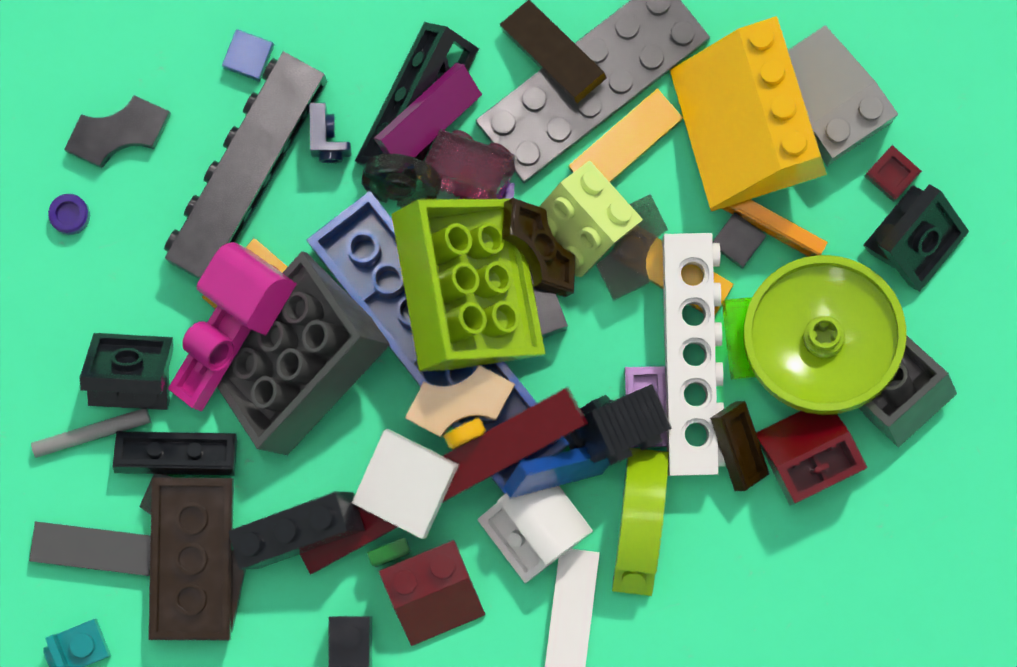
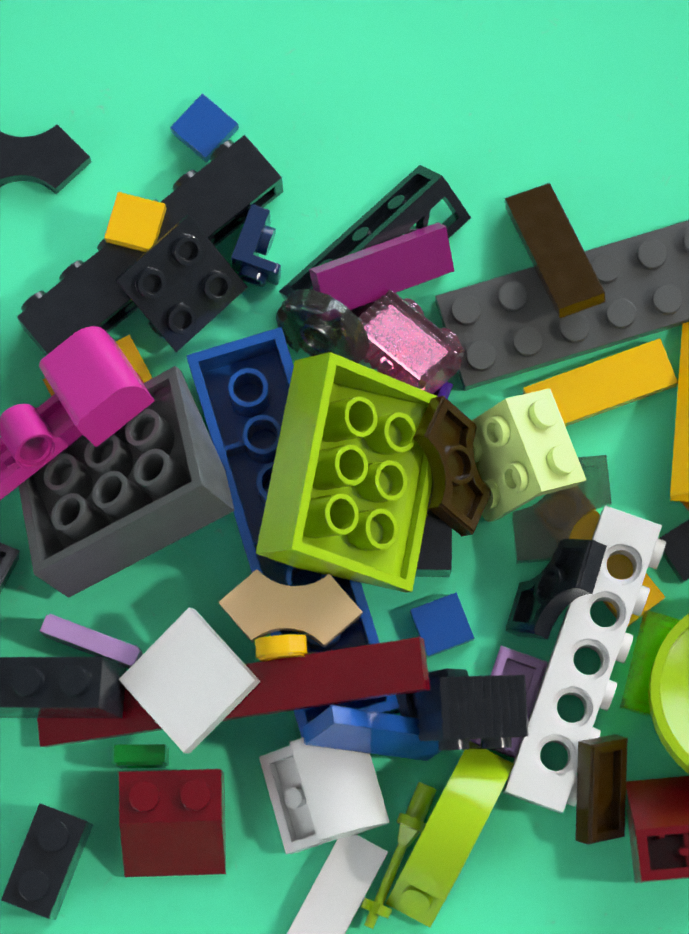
camera: 20 degrees right, 5 degrees down
(227, 151) = (135, 222): none -> yellow tile
(279, 184) = (181, 283): none -> black hinge
(318, 481) = (90, 641): none -> lavender tile
(575, 368) = (442, 624): none -> blue tile
(609, 527) = (410, 826): none -> lime piece
(655, 299) = (565, 578): none -> black tile

